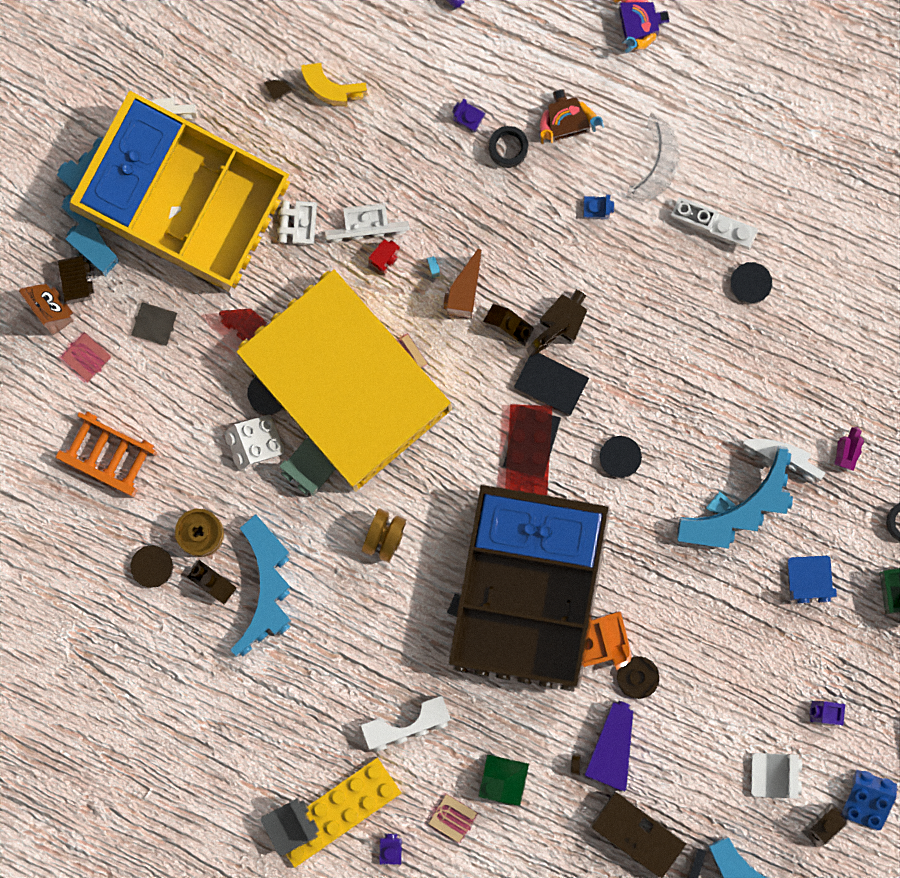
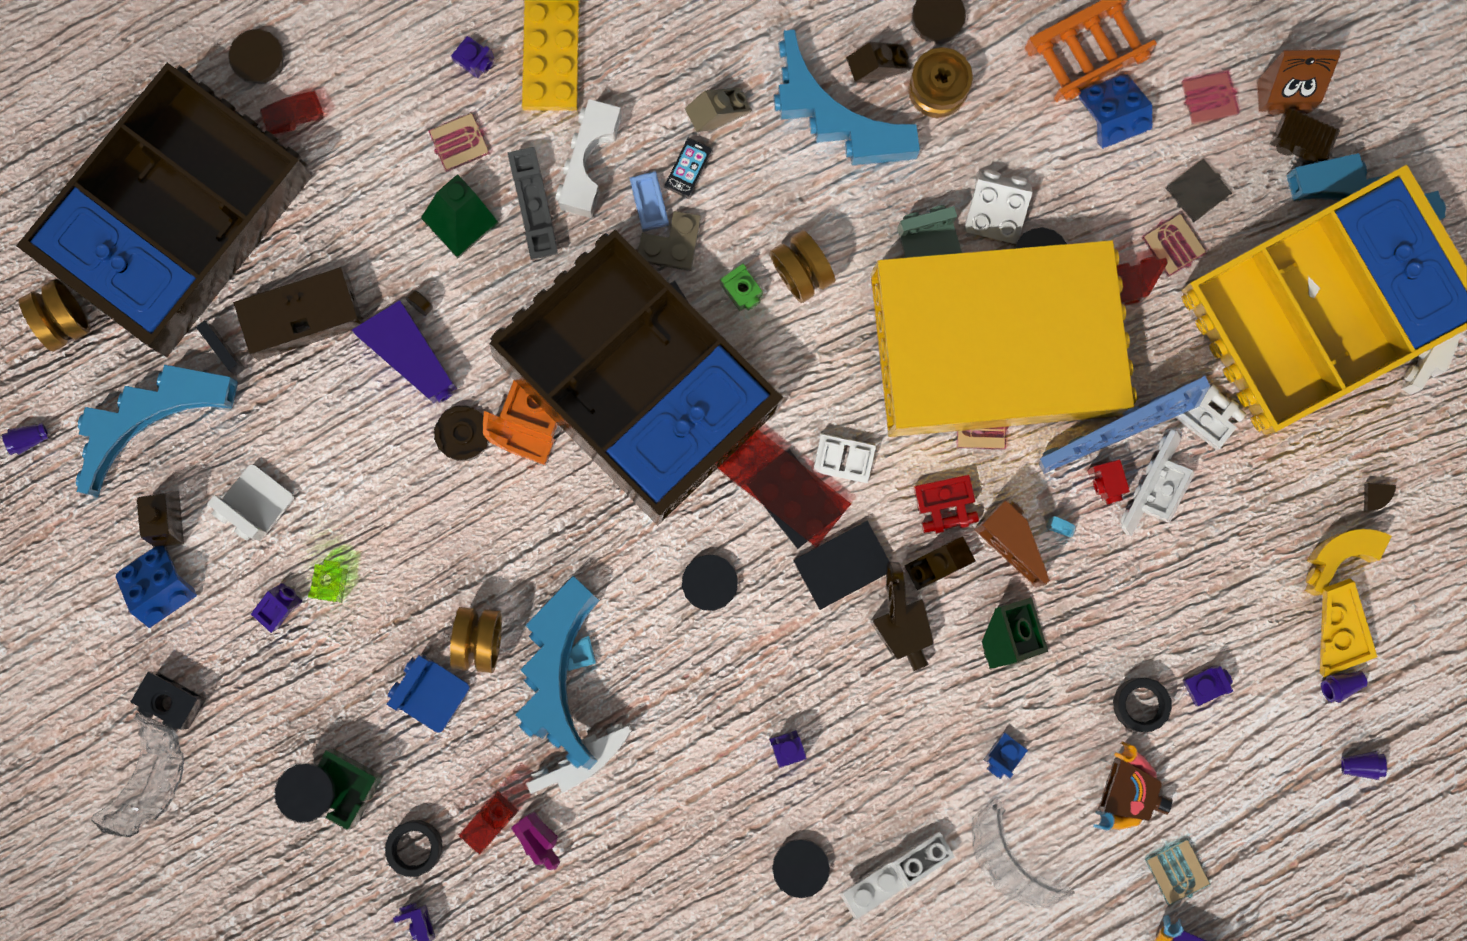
camera: 125 degrees right, 0 degrees up
(137, 410) = (1118, 109): none -> blue bracket
(201, 316) = (1176, 243): none -> piece
(315, 664) = (717, 108): none -> dark tan slope
(341, 265) = (1134, 421): none -> medium blue wing
(366, 656) = (688, 168): none -> tile
(378, 56) = (1344, 629): none -> yellow wing
(406, 666) = (649, 201): none -> light blue tile
(412, 36) = (1341, 686): none -> dark purple cone
(422, 574) = (741, 299): none -> bright green brick
(424, 626) = (677, 249): none -> dark tan plate
(461, 737) = (533, 203): none -> dark grey slope
(464, 350) = (944, 495): none -> red plate
(487, 438) = (858, 460): none -> white piece
(521, 250) = (1013, 634): none -> dark green slope
(592, 61) = (1177, 871): none -> piece
(687, 338) = (787, 749): none -> dark purple brick
(758, 570) = (475, 639): none -> pearl gold wheel
(780, 691) = (335, 589): none -> clear neon green brick
(860, 486) = (488, 823): none -> clear red slope

